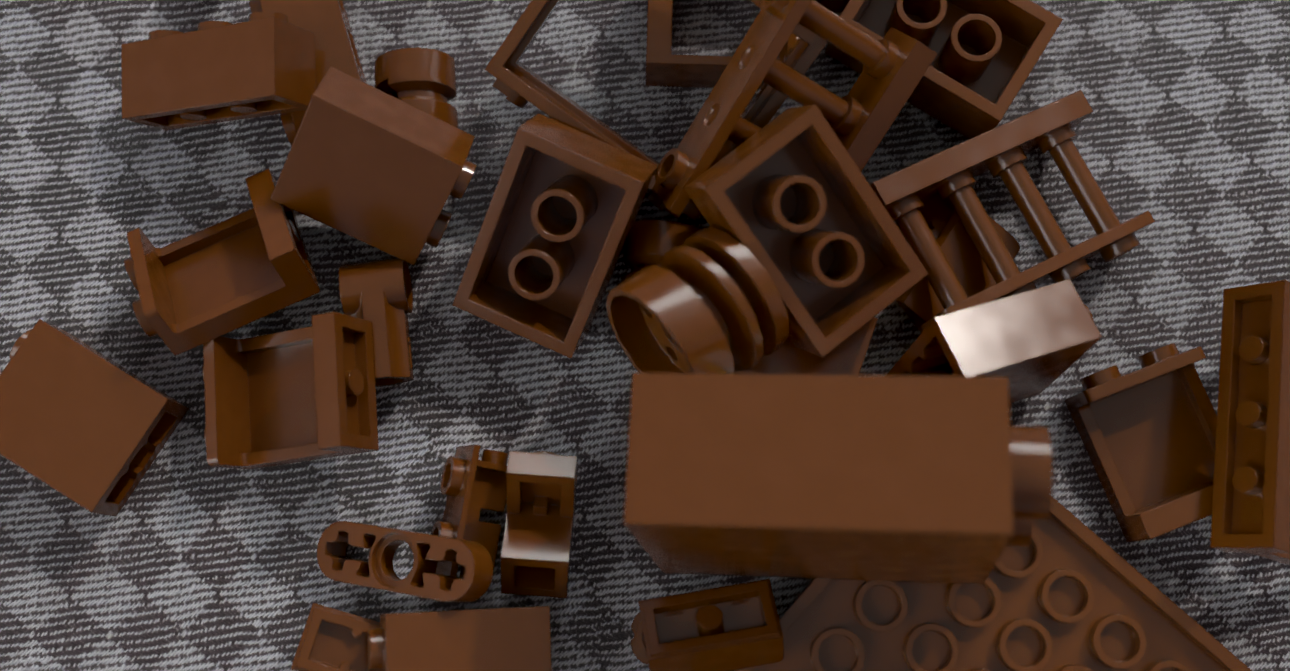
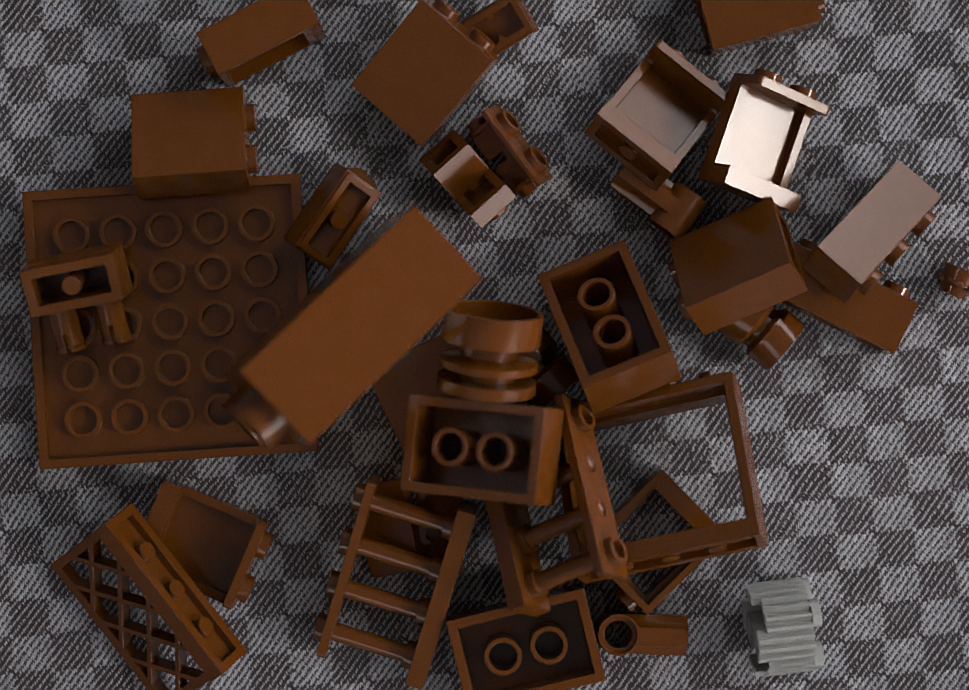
camera: 135 degrees right, 10 degrees up
(426, 550) = (506, 110): reddish brown beam -> none
(1016, 337) = (329, 490): brick -> none

